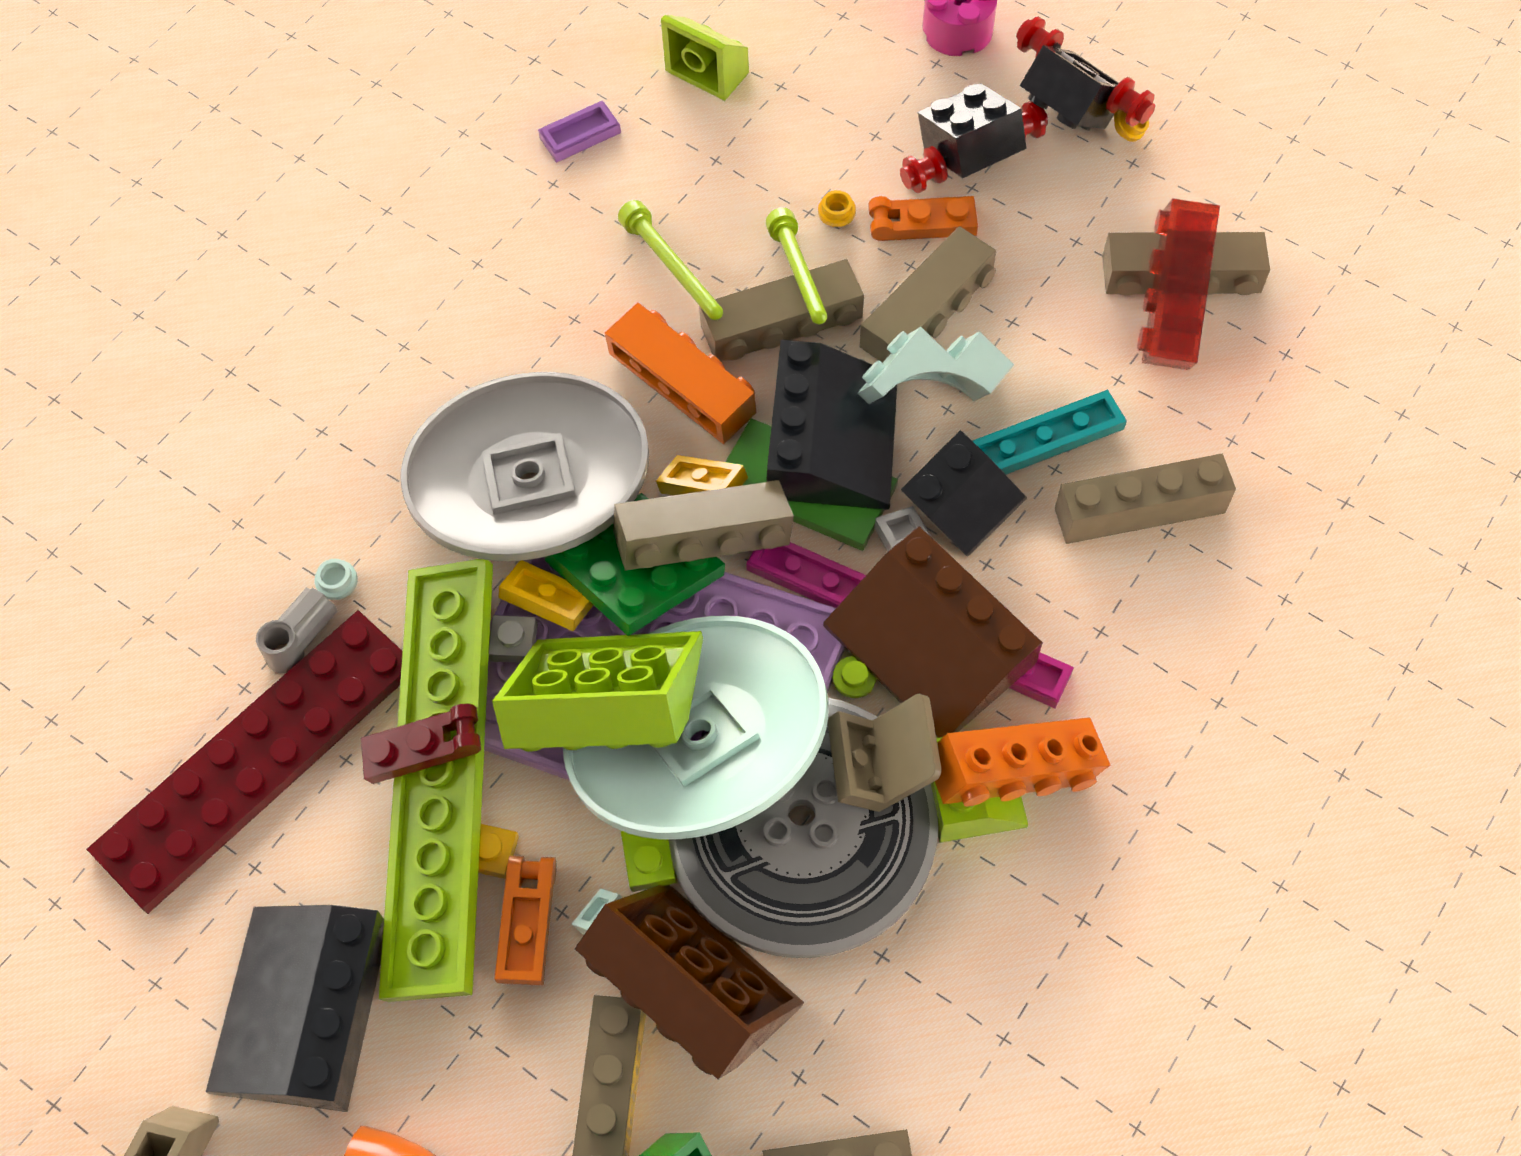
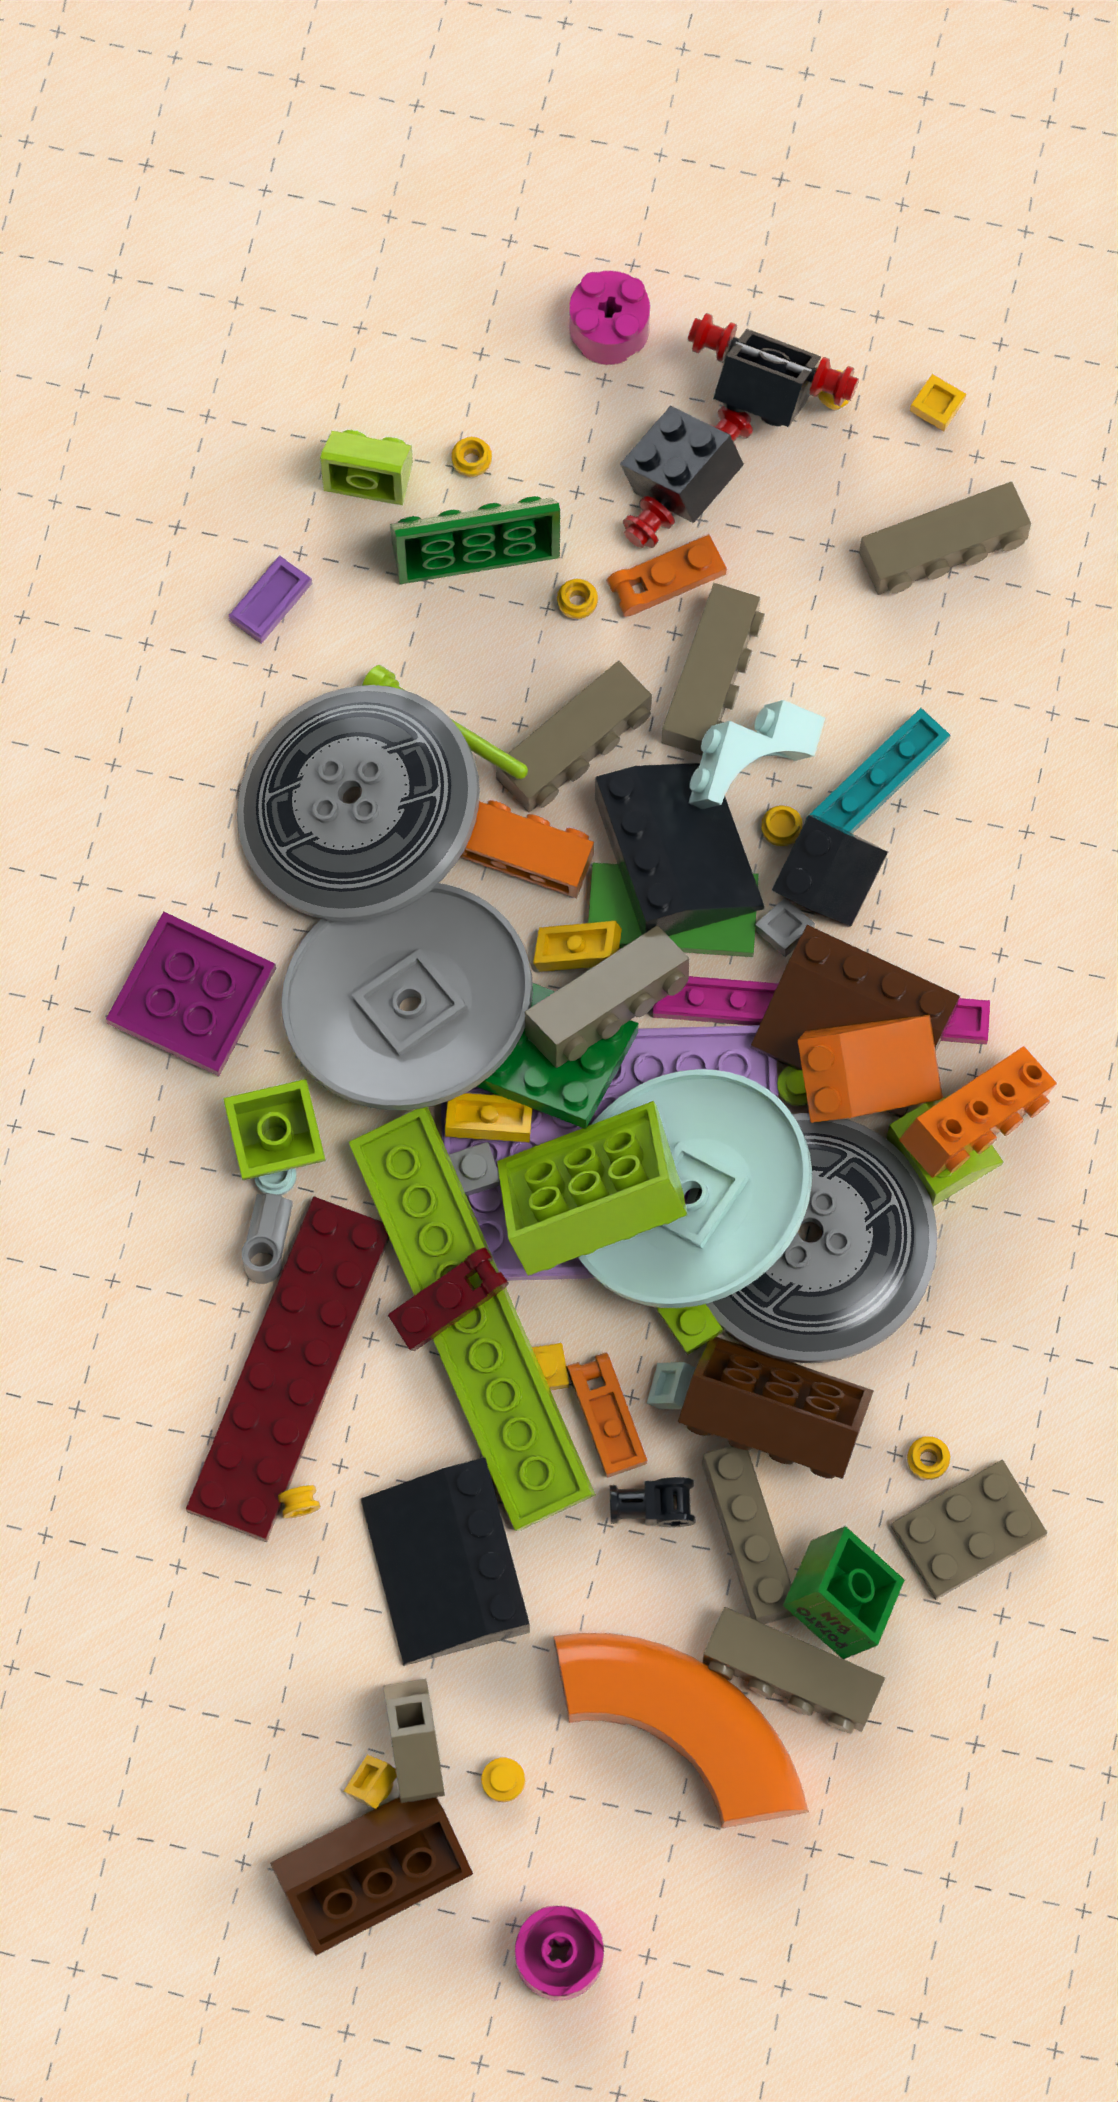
camera: 25 degrees left, 10 degrees up
(191, 885) = (299, 1501): none -> yellow bush
(346, 403) = (191, 993): none -> magenta plate
(348, 532) = (274, 1129): none -> lime slope
(533, 1029) = (654, 1503): none -> black connector
(563, 334) = (389, 843): none -> dish
(766, 126) = (476, 539): none -> green slope
(783, 228) = (535, 642): lime piece -> none
(797, 79) = (468, 446): none -> yellow plate
(835, 1081) = (931, 1445): none -> yellow plate
(886, 756) = (866, 1152): dark tan bracket -> none
(932, 442) = (781, 825): none -> yellow plate
(952, 672) = (869, 1067): none -> orange slope
(1144, 498) = (994, 810): dark tan brick -> none
(1179, 284) = (951, 575): clear red brick -> none
(1220, 160) = (938, 402): none -> yellow plate

